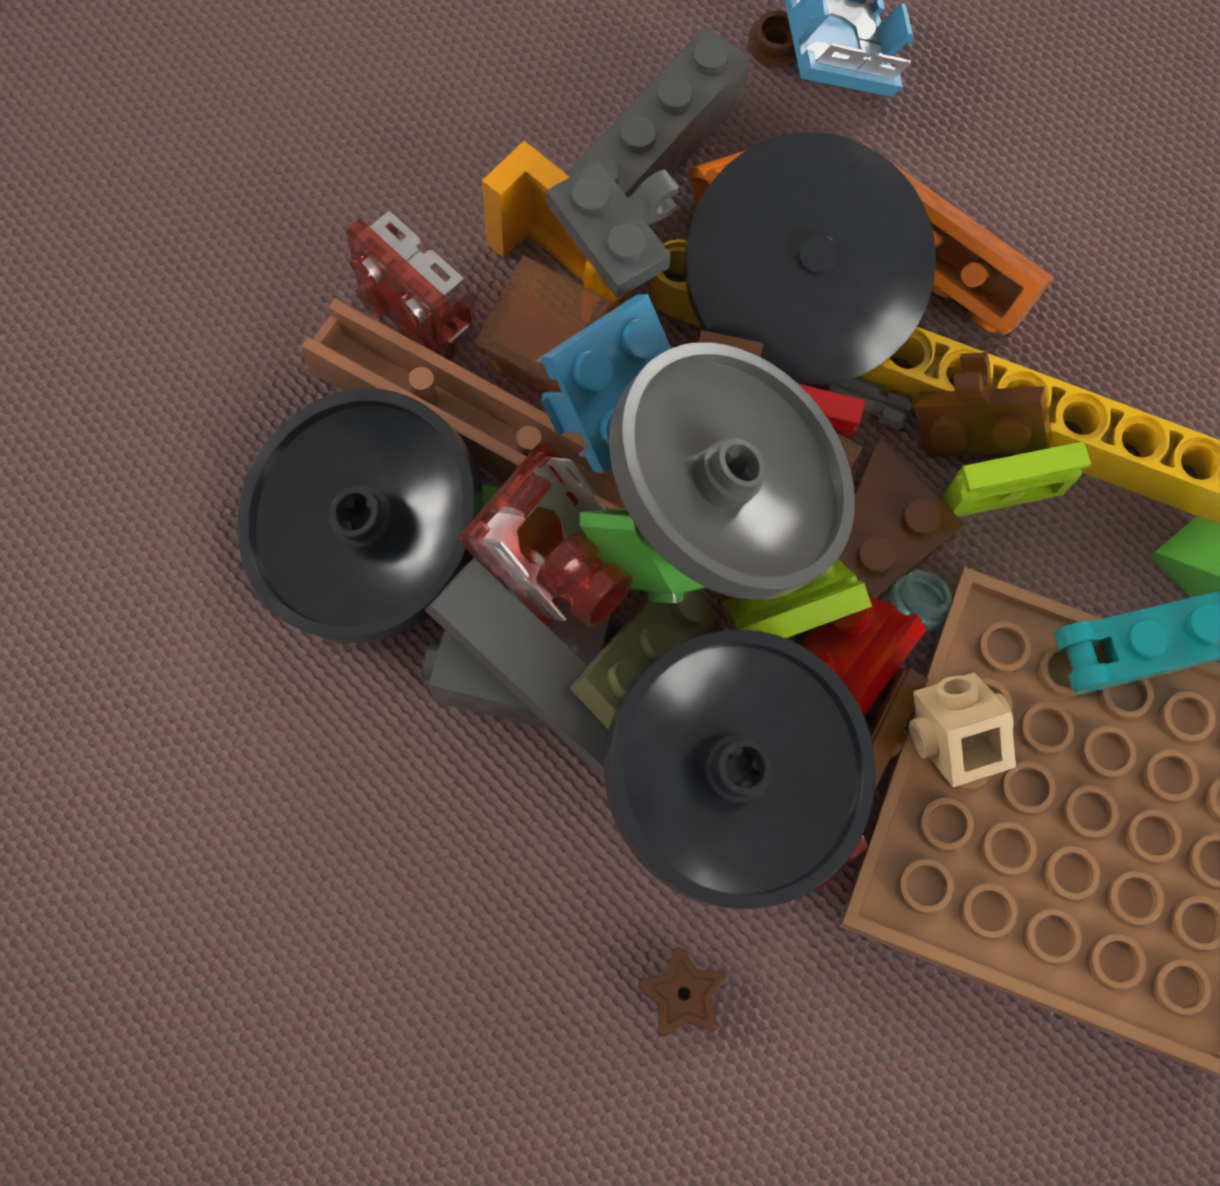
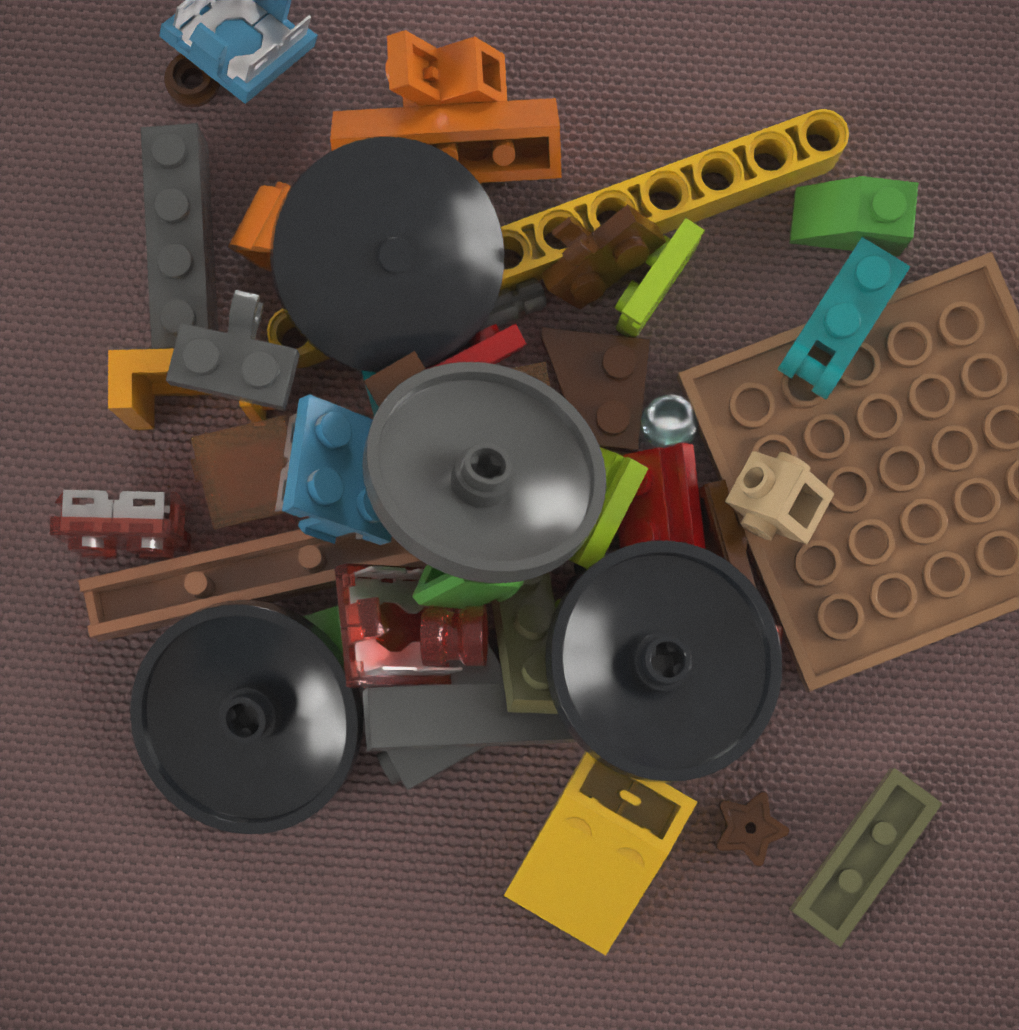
camera: 35 degrees left, 10 degrees up
(538, 886) = (599, 851): none -> yellow slope
(762, 1114) = (865, 856): none -> olive plate
(988, 193) = (444, 75): none -> orange brick

